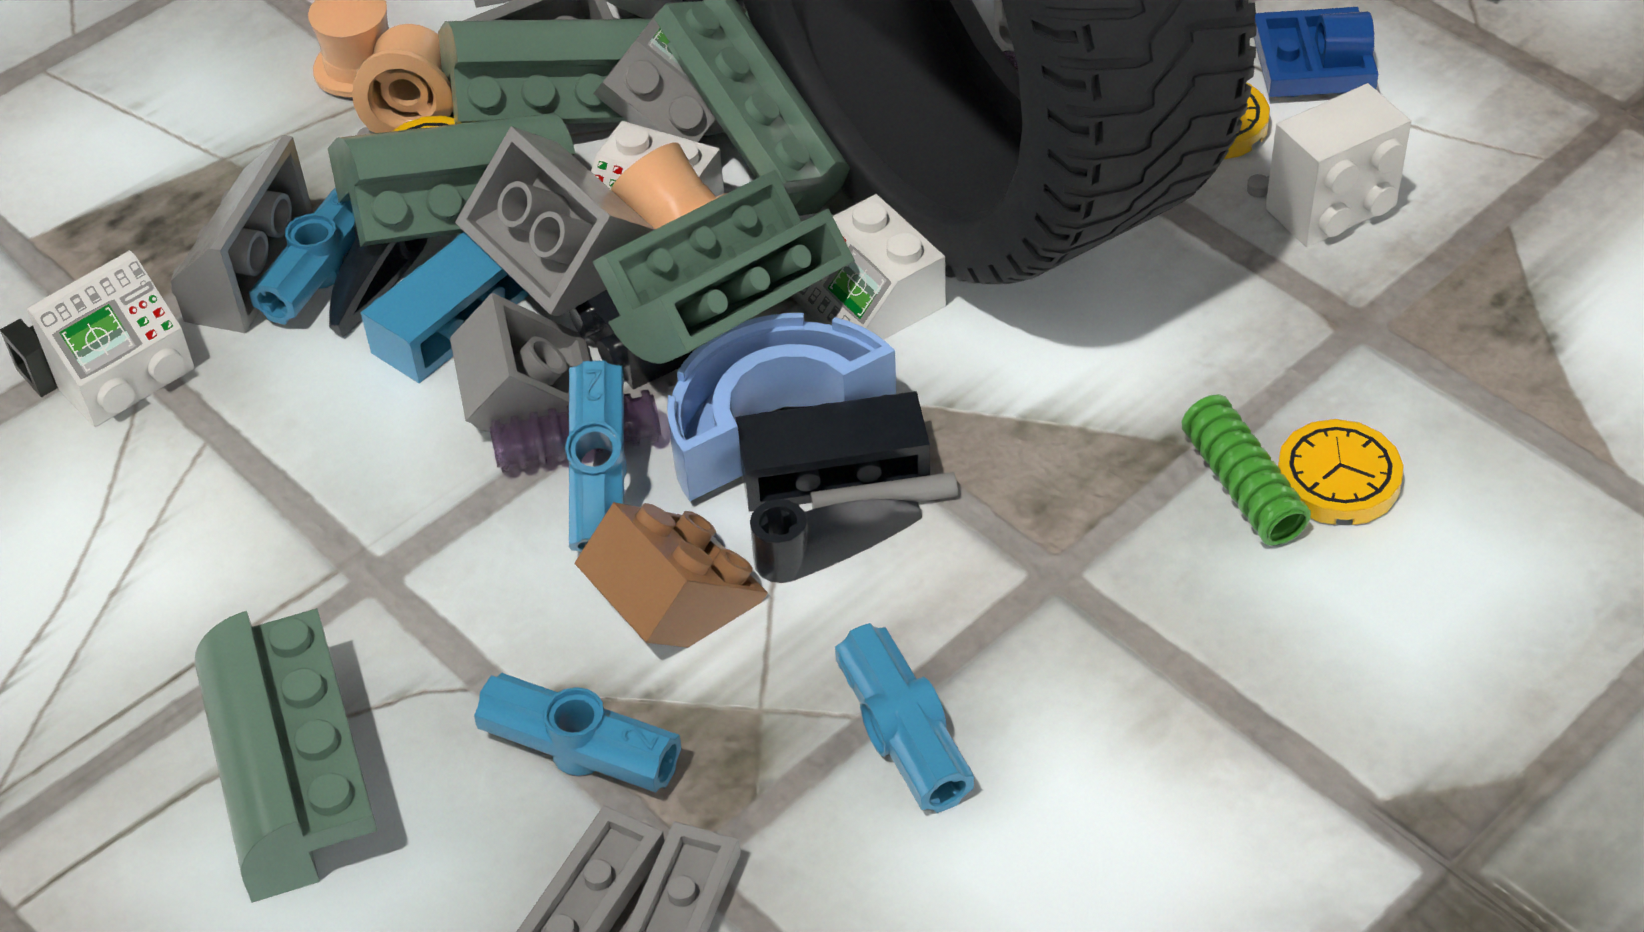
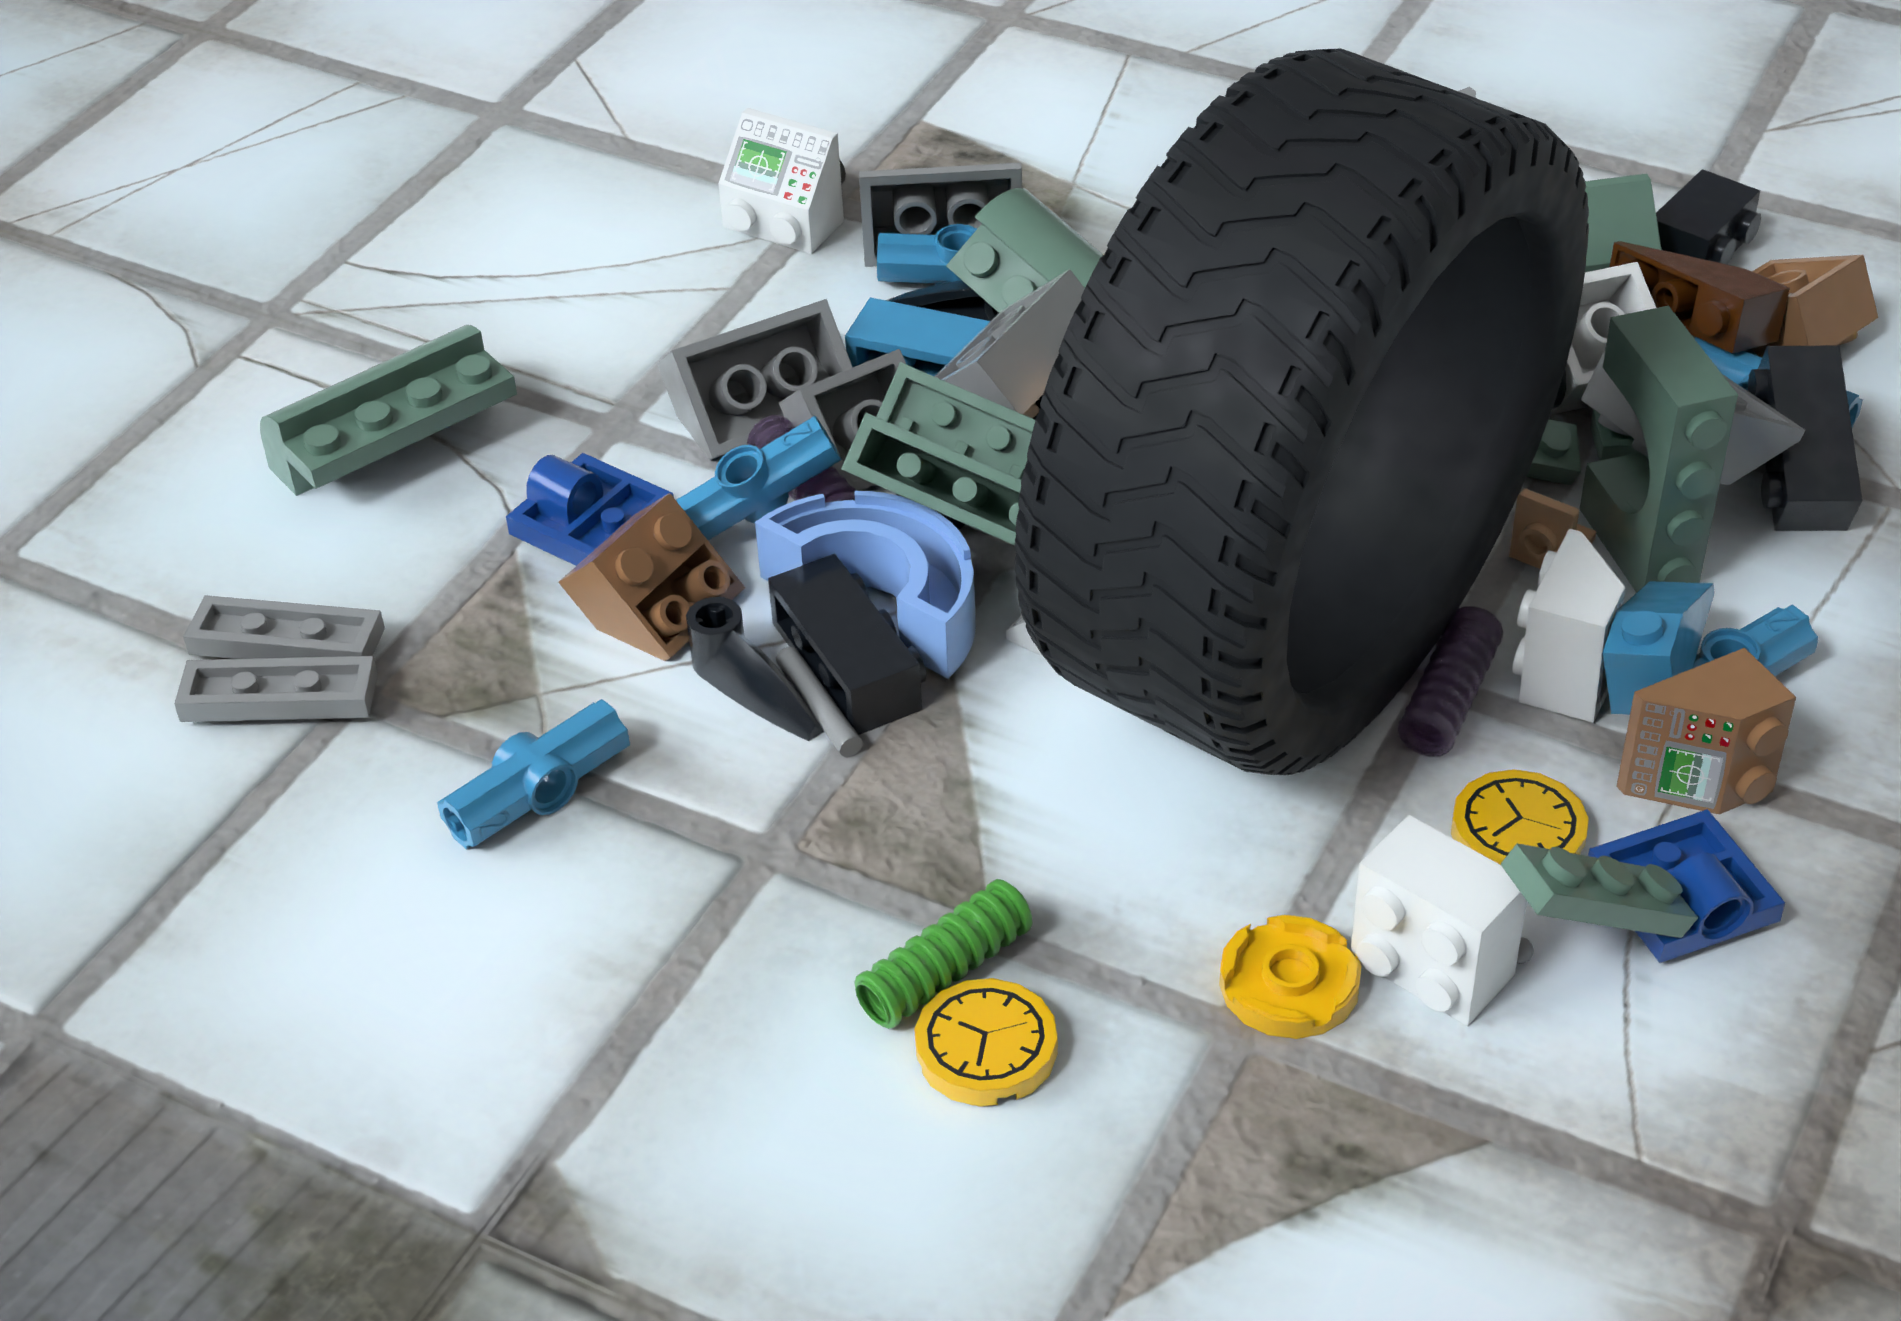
camera: 70 degrees right, 5 degrees down
(404, 435) = (743, 374): none -> light grey slope
(531, 609) = (577, 505): none -> blue plate
(552, 722) = (456, 576): dark azure piece -> none
(1324, 281) = (1290, 977): none -> yellow tile
(1368, 61) = (1599, 890): none -> sand green plate

